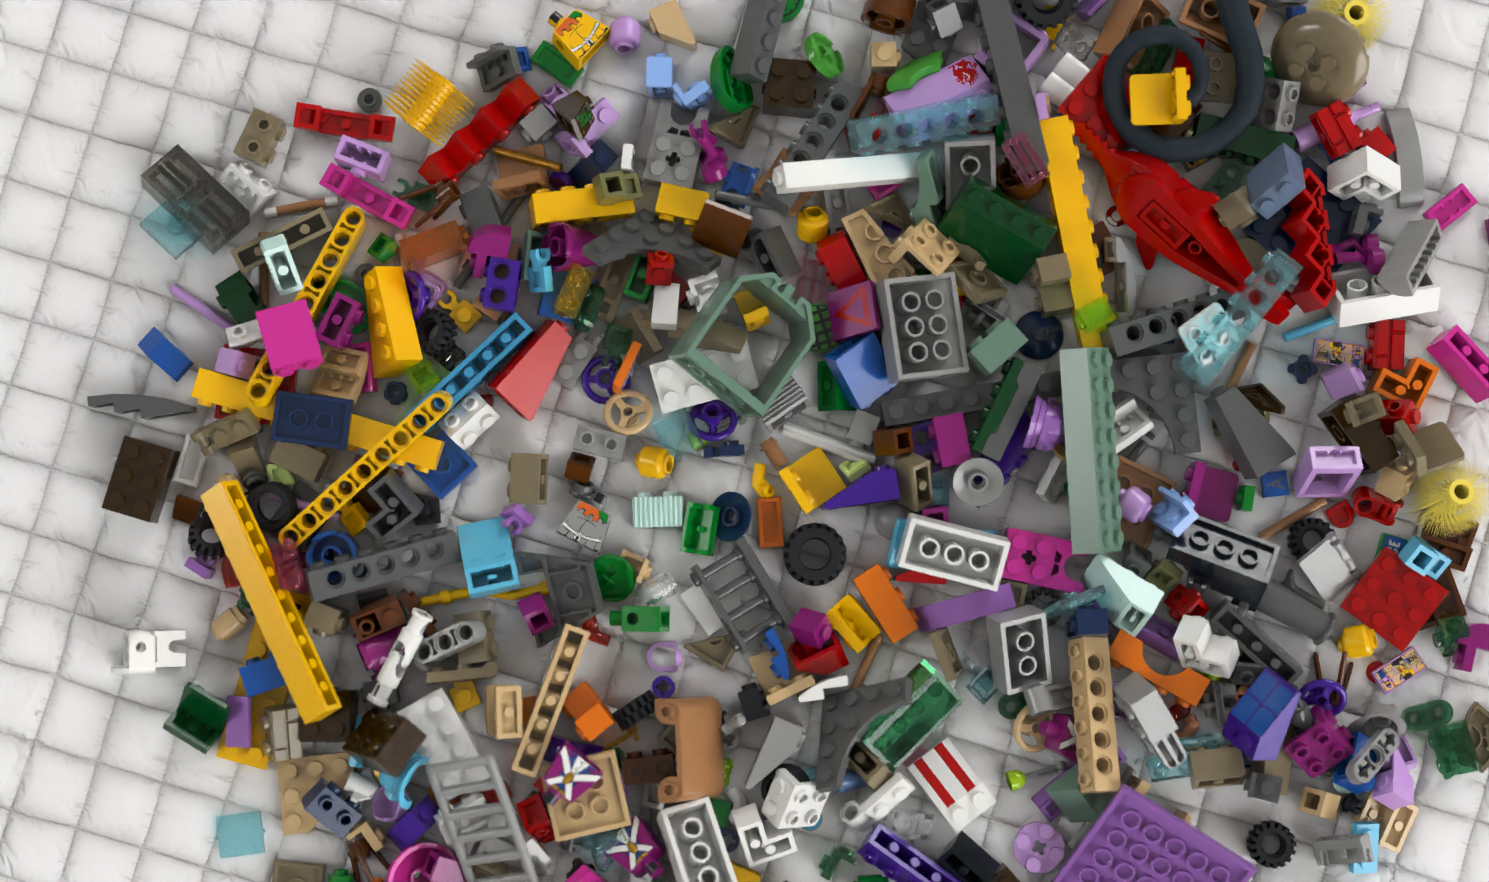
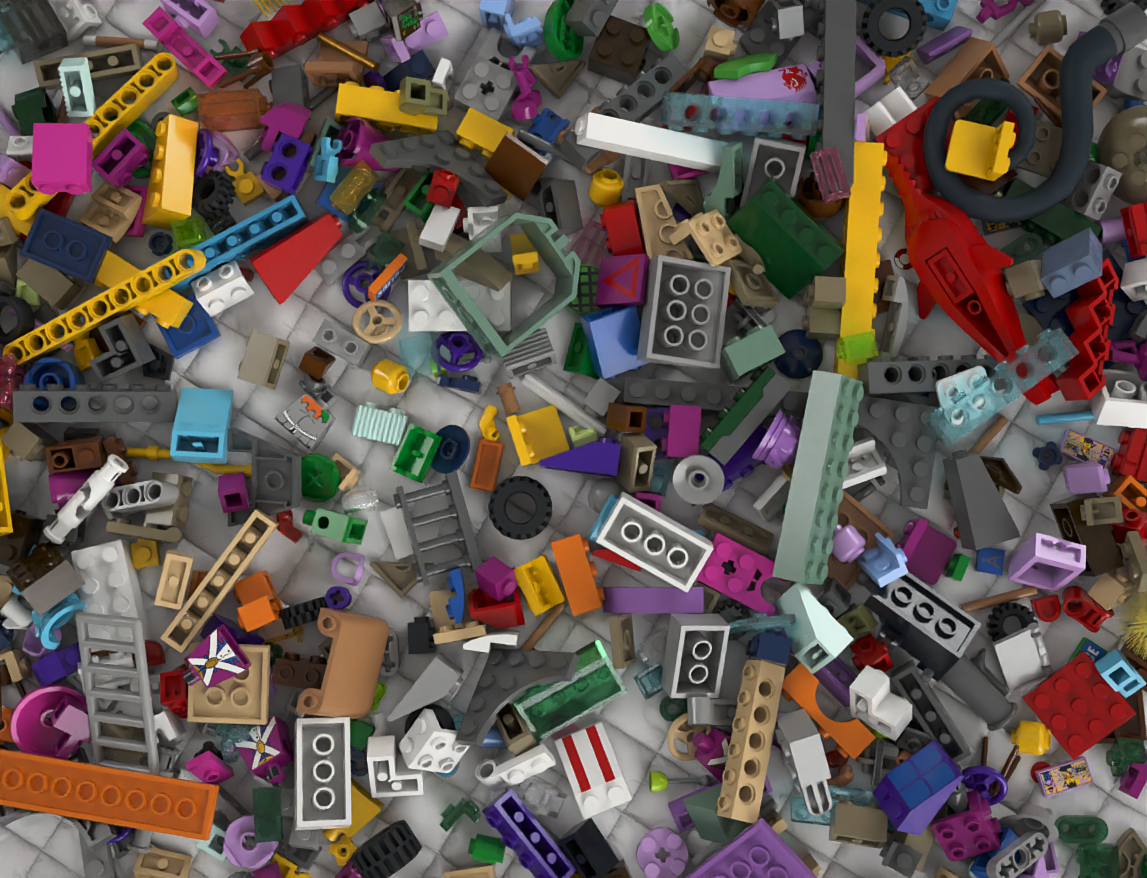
camera: 20 degrees right, 0 degrees up
(517, 516) = (242, 393): medium lavender tile -> none
(734, 722) = (396, 651): light grey bar -> none
(1024, 518) = (735, 528): none -> dark tan plate

